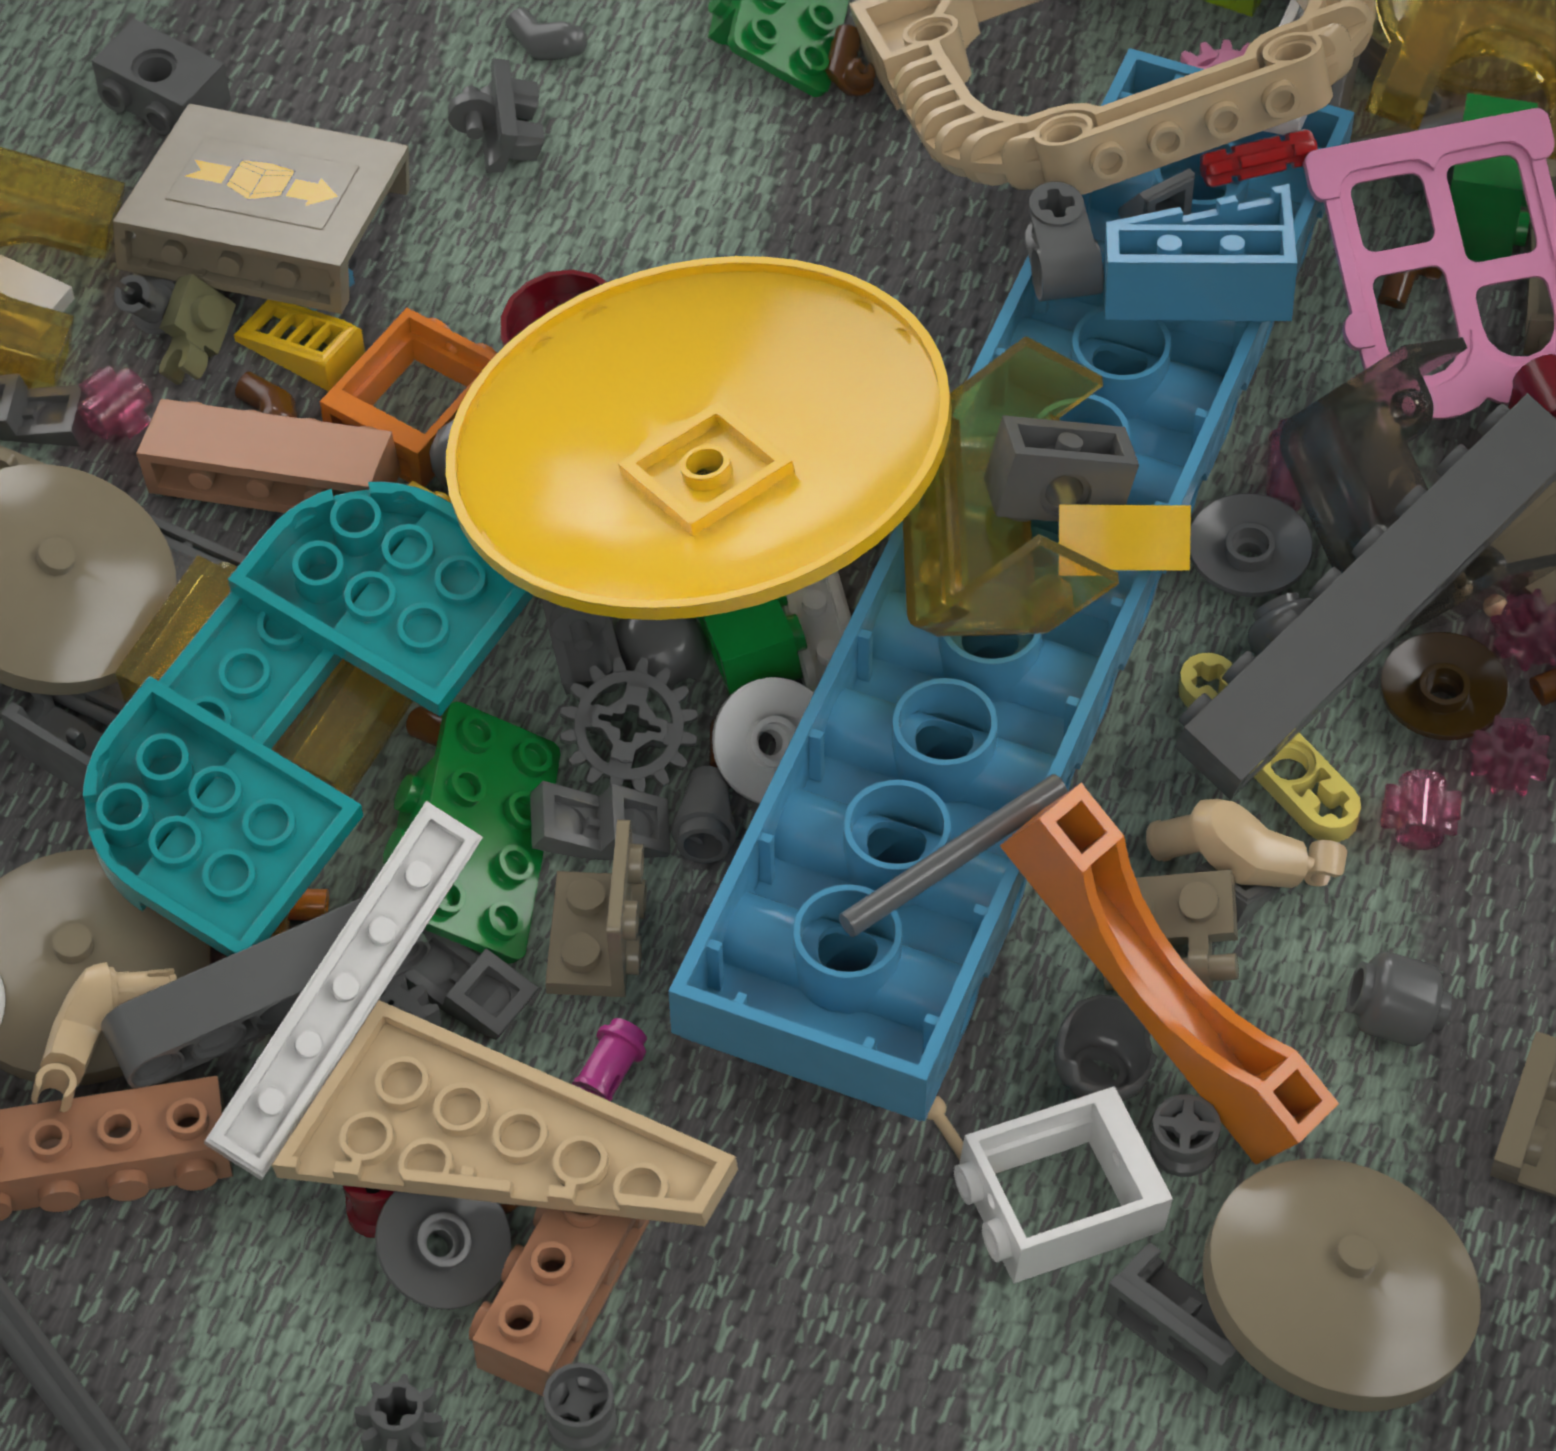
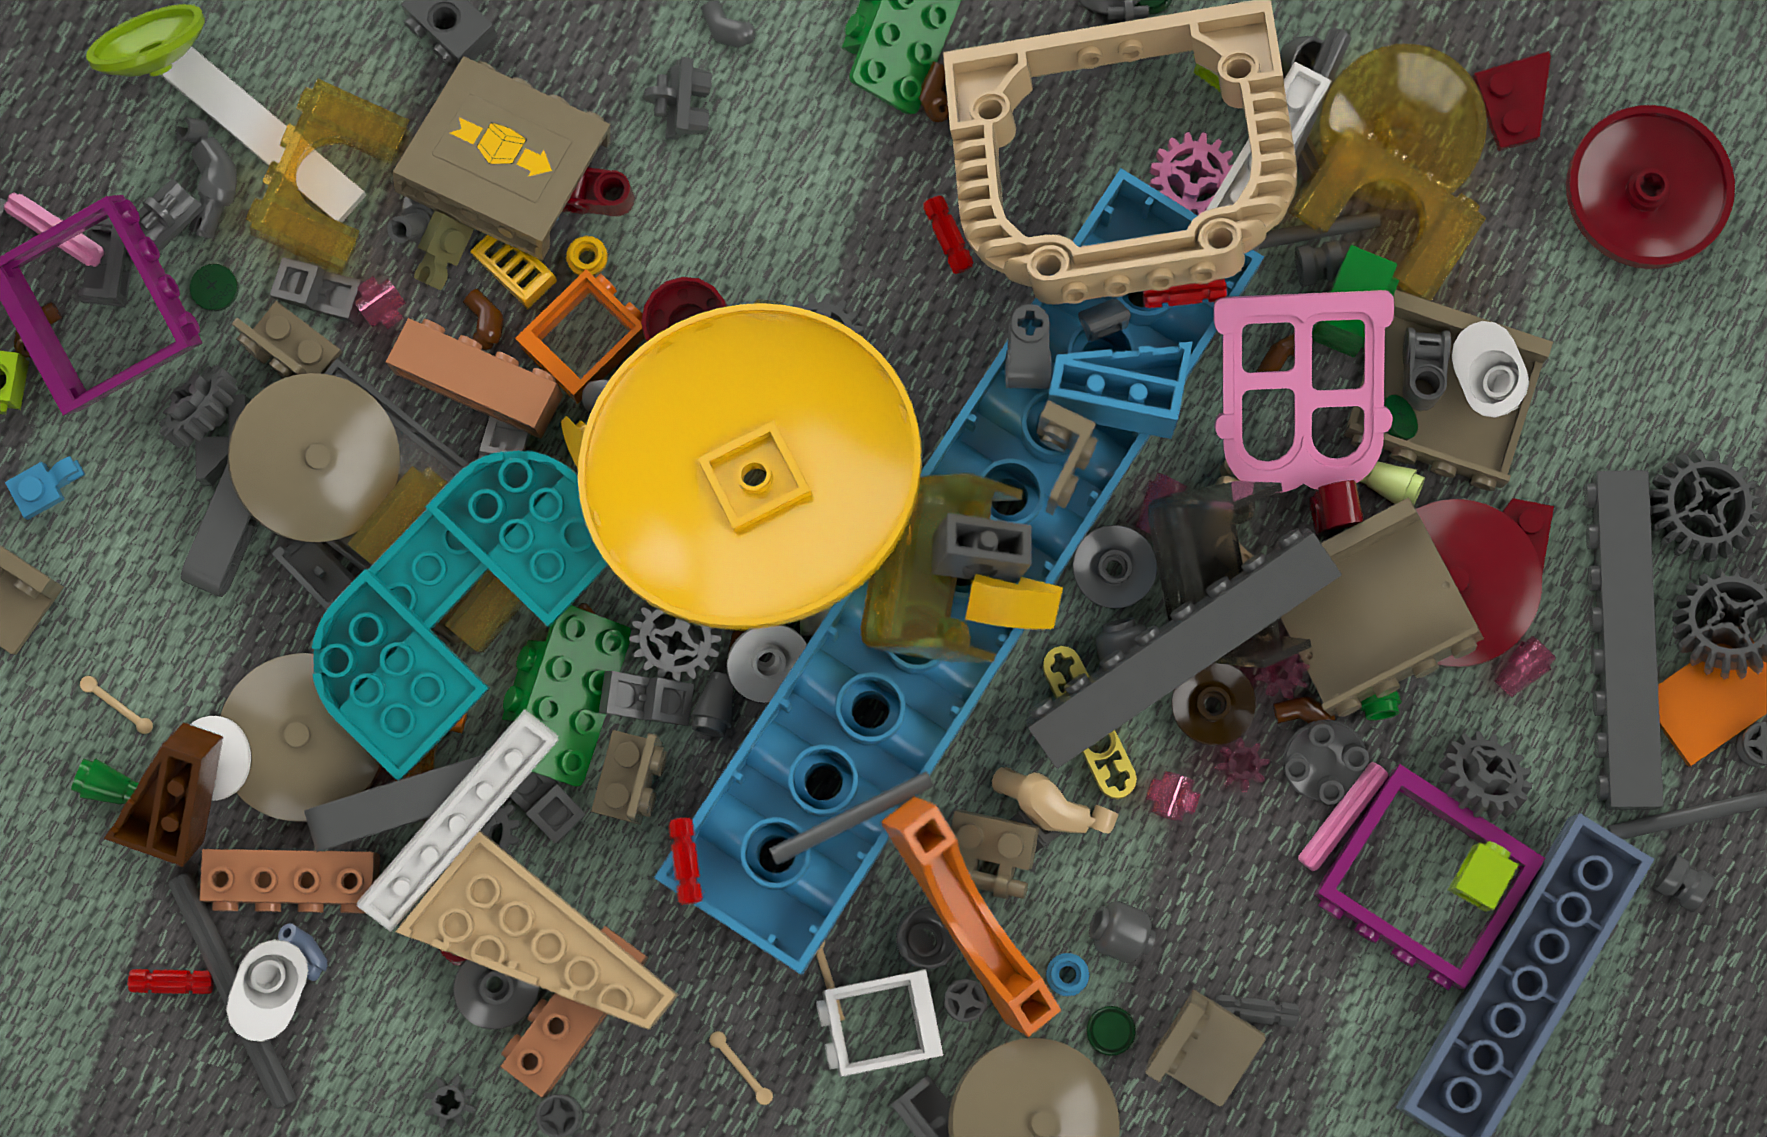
camera: 10 degrees right, 25 degrees up
(75, 1298) = (266, 990): none -> white piece
(79, 1020) = (297, 796): tan arm -> none
(128, 1246) = (306, 943): none -> sand blue arm
(396, 300) = (582, 244): none -> yellow plate
(407, 236) = (591, 192): none -> dark red piece
(617, 1050) = (621, 876): dark pink pin -> none
(713, 952) = (685, 861): none -> red axle
(900, 1332) = (763, 1095): none -> tan hinge
(906, 212) = (948, 234): none -> red axle
(1142, 325) = (1066, 430): none -> dark tan bracket
(1344, 1063) = (1081, 974): none -> dark azure plate
(1420, 1146) = (1111, 1030): none -> dark green piece

